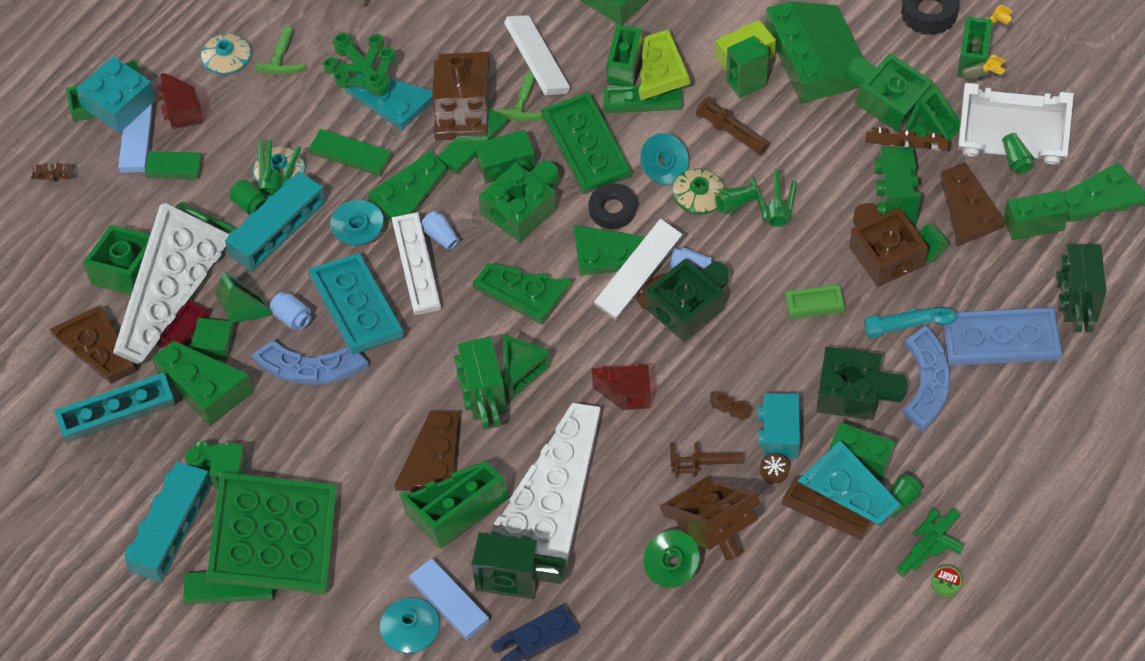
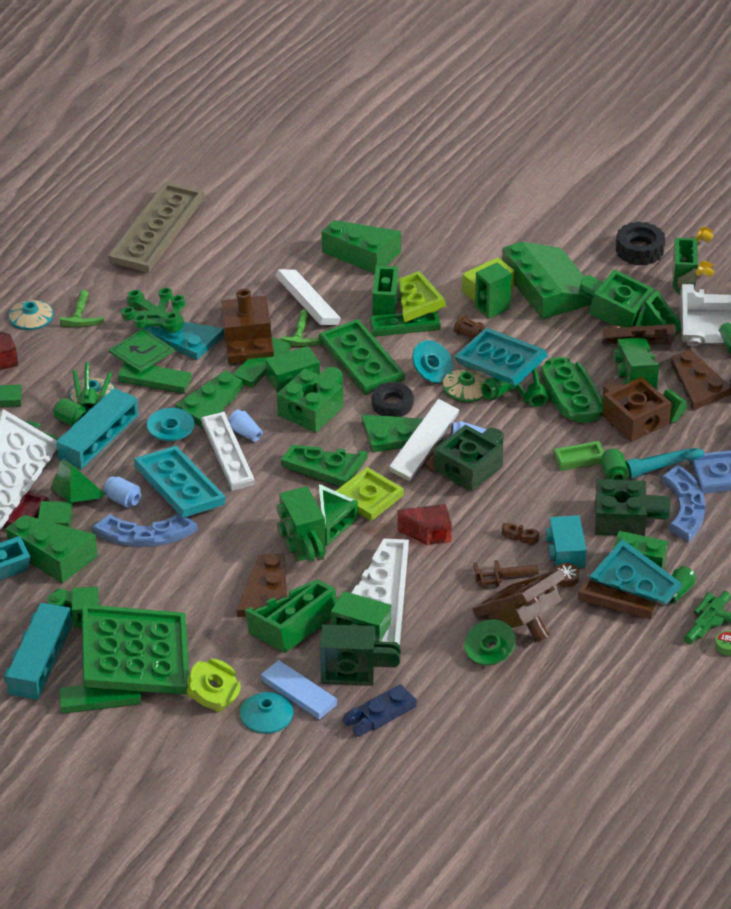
camera: 10 degrees left, 15 degrees down
(337, 594) = (207, 695): none -> lime plate
(339, 117) = (141, 350): none -> green piece
(529, 514) = (362, 611): none -> green brick
(566, 336) = (372, 493): none -> lime plate
(741, 163) = (501, 356): none -> teal plate
(819, 209) = (572, 390): none -> green tile
(851, 323) = (614, 465): none -> green brick

